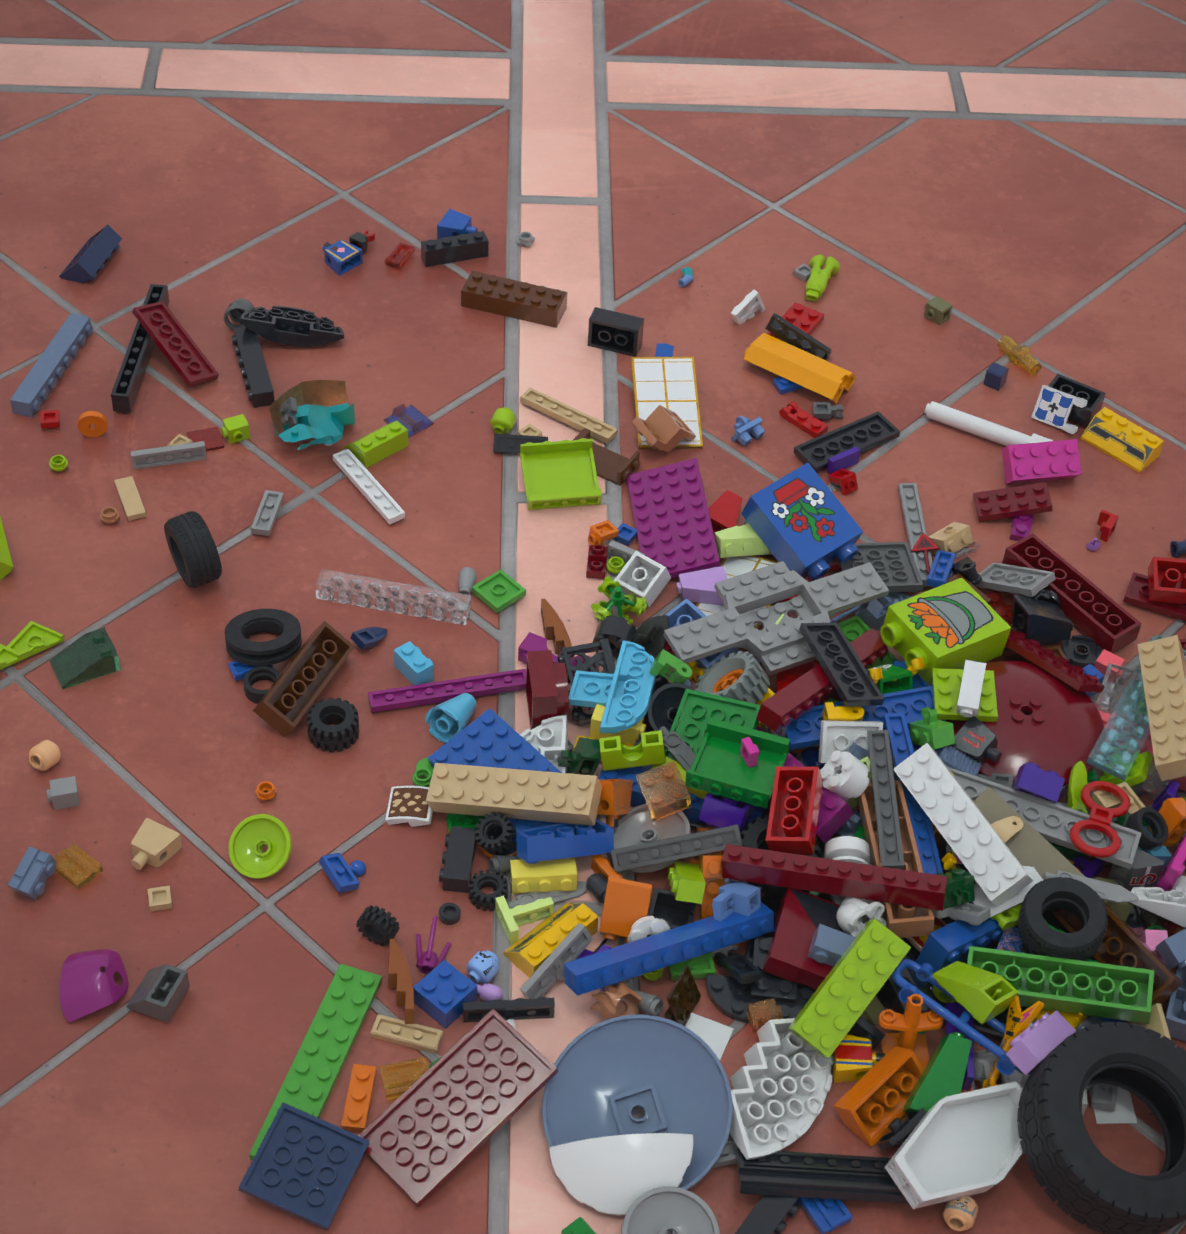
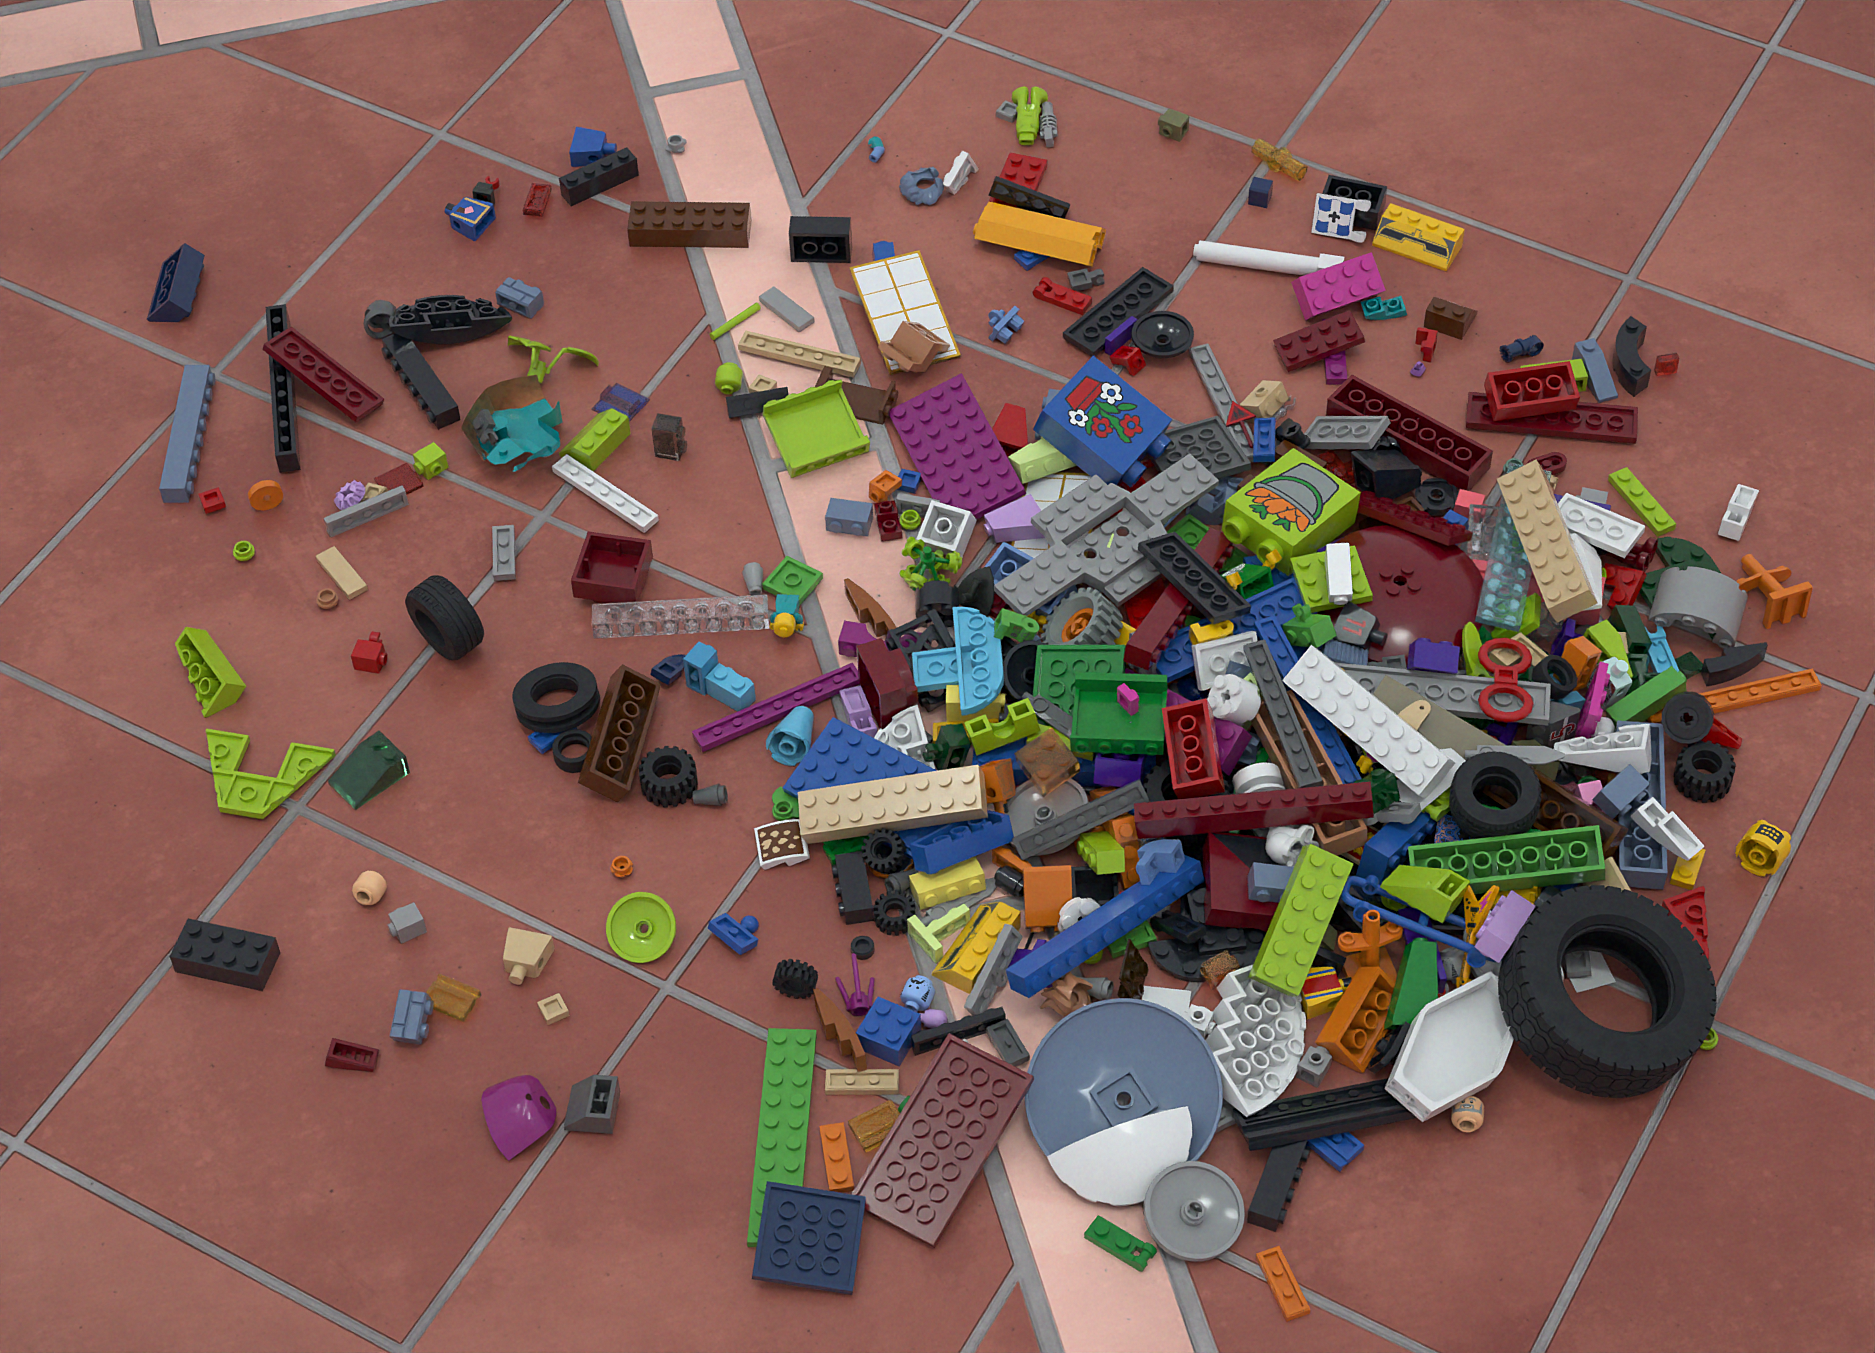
camera: 10 degrees left, 5 degrees up
(124, 567) = (370, 654): none -> red brick
(161, 439) = (349, 495): none -> lavender gear
(348, 544) = (611, 568): none -> dark red container
(351, 378) = (538, 367): none -> lime plant
(357, 323) = (519, 297): none -> sand blue brick
(366, 750) = (711, 795): none -> dark grey cone
(391, 637) = (698, 665): none -> dark azure brick
(435, 453) = (668, 437): none -> clear smoke brick
(483, 616) = (787, 616): none -> piece
(516, 709) = (858, 710): none -> lavender slope
(519, 381) = (735, 321): none -> lime bar
(549, 1033) = (1007, 1043): none -> dark grey plate
(564, 550) = (849, 517): none -> sand blue brick
(570, 379) = (786, 309): none -> light grey tile
(717, 320) = (928, 196): none -> sand blue piece
(731, 1057) = (1200, 1019): none -> white brick
(827, 1128) = (1314, 1066): none -> light grey brick
(833, 288) = (1048, 124): none -> light grey hinge
(878, 466) = (1162, 334): none -> black dish
(1081, 491) = (1381, 310): none -> teal slope
(1132, 509) = (1448, 317): none -> reddish brown slope

